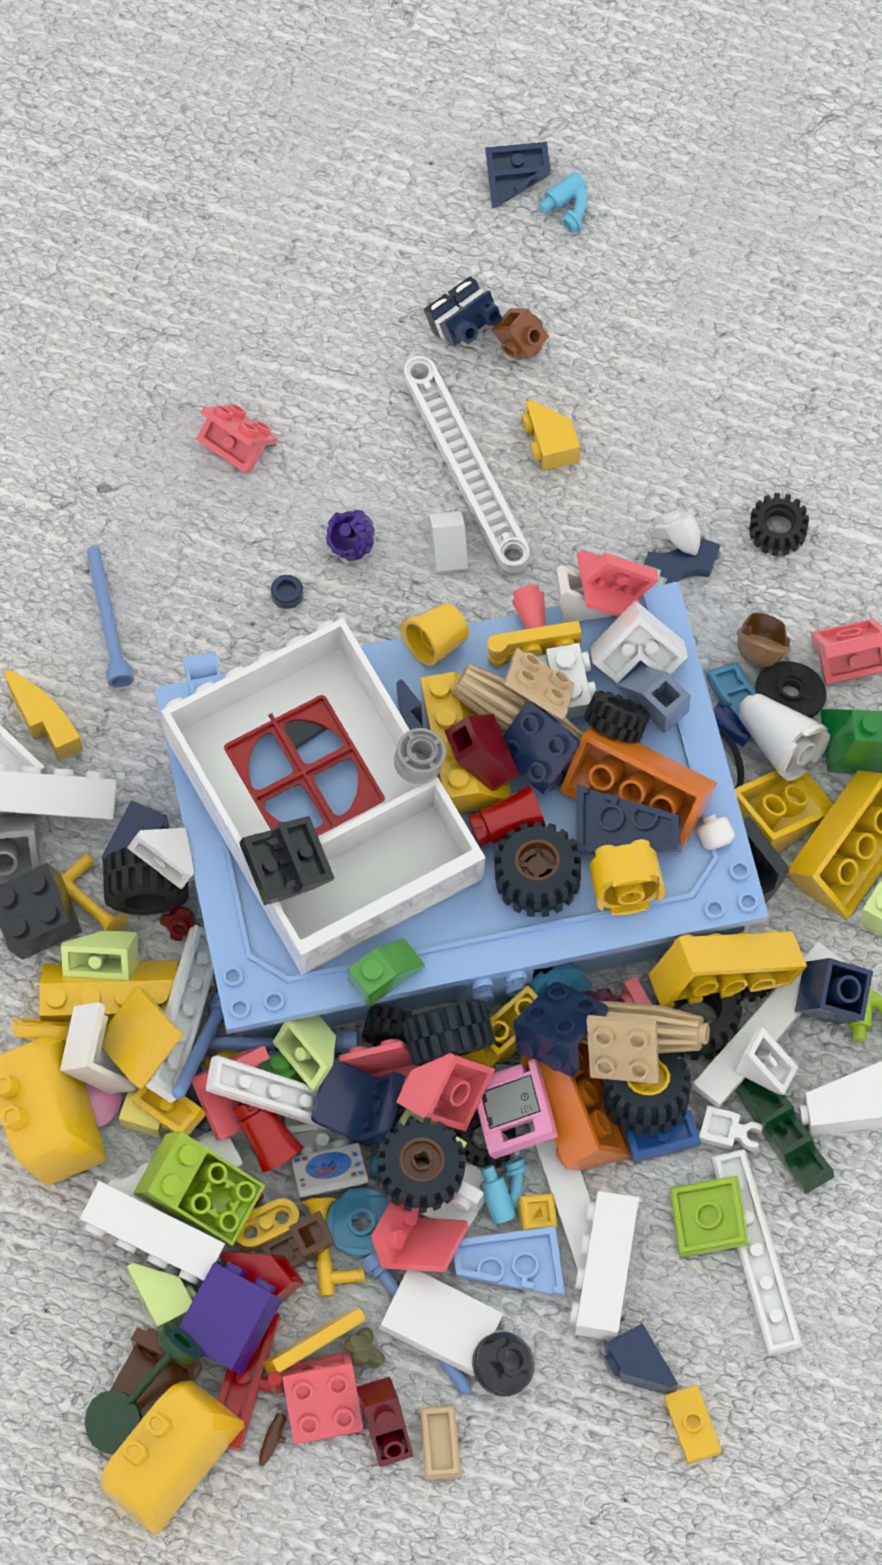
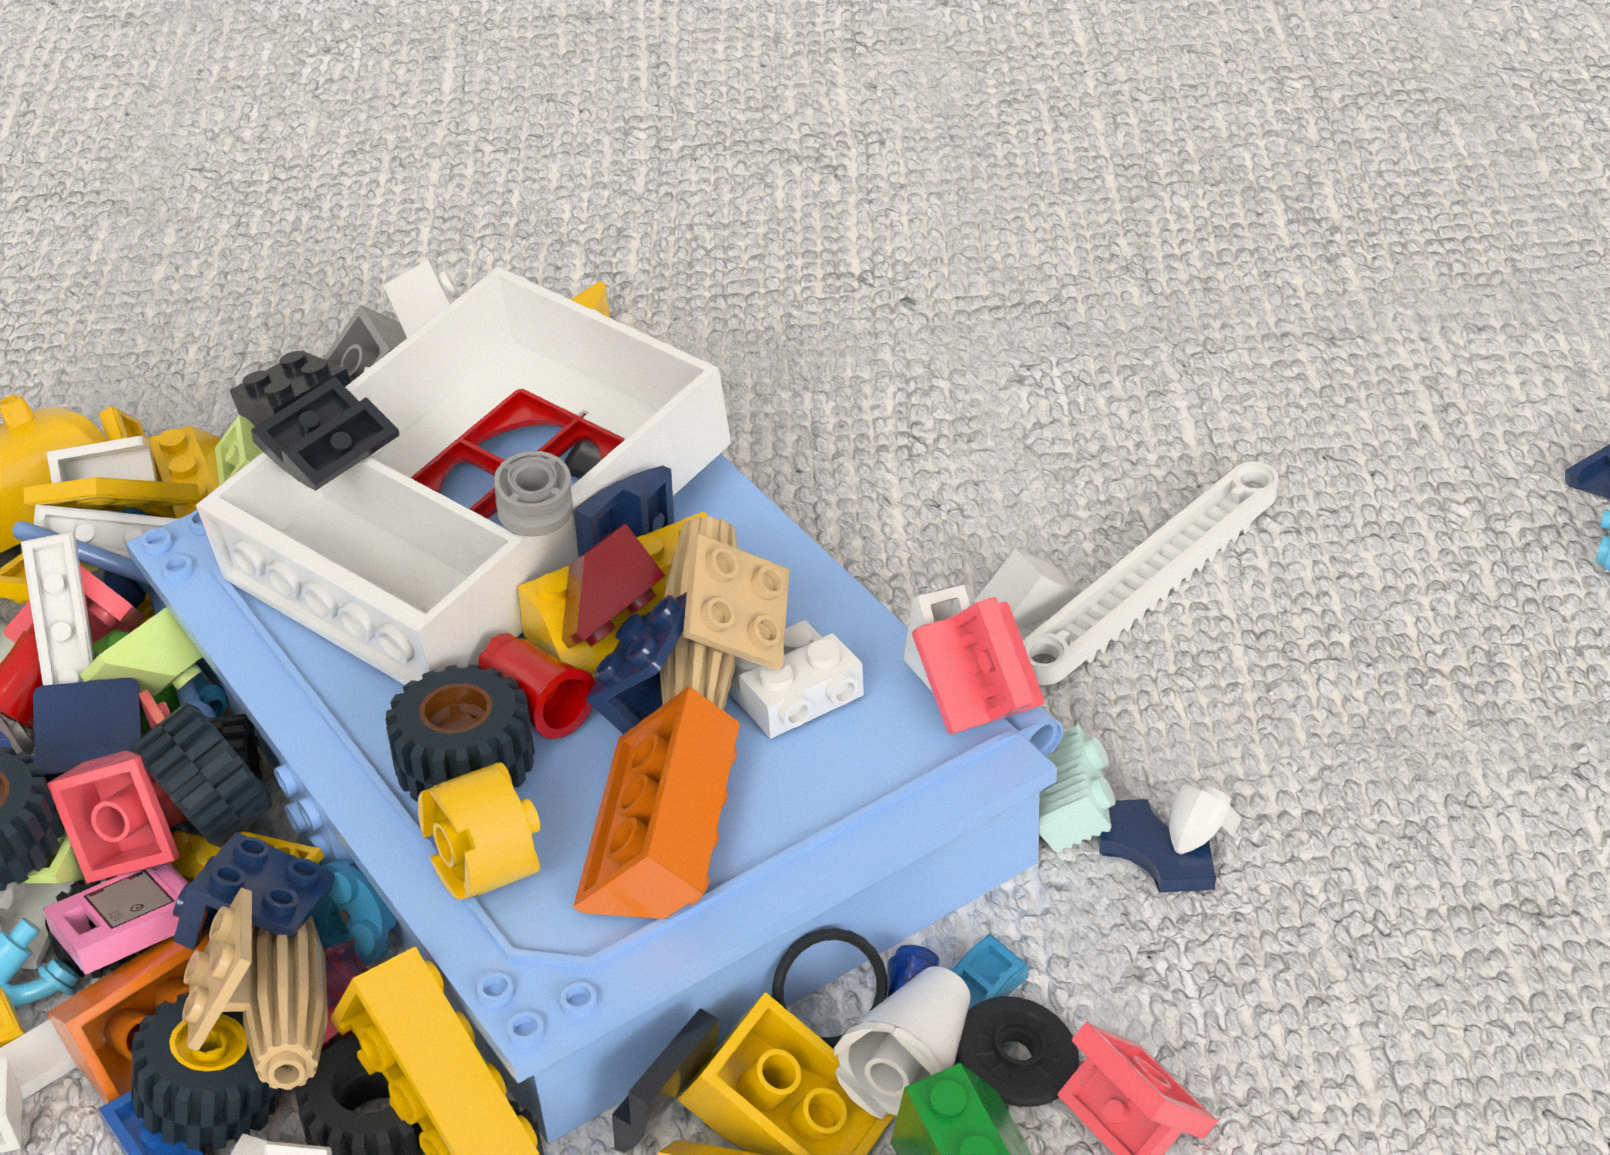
camera: 70 degrees right, 25 degrees down
(119, 672) = (762, 337): medium blue piece -> none
(235, 435) = (1045, 357): coral bracket -> none
(287, 591) = (858, 480): dark blue tile -> none
(350, 534) = (965, 492): dark purple piece -> none
(384, 970) = (242, 637): bright green slope -> none
(434, 633) = (799, 523): yellow hat -> none
(462, 312) = (1359, 484): dark blue hips -> none
(520, 333) = (1385, 530): dark orange brick -> none
(530, 606) = (892, 612): coral cone -> none
(531, 641) = (832, 611): yellow plate -> none
(552, 435) = (1251, 636): yellow slope -> none
(616, 716) = (753, 734): black tyre -> none
(618, 822) = (579, 807): dark blue wing -> none
(637, 637) = (909, 731): white panel -> none
(658, 695) = (816, 782): sand blue slope -> none
(715, 832) = (632, 942): white piece -> none
(763, 640) = (1076, 973): piece -> none
(784, 508) = (1295, 960): black tyre -> none

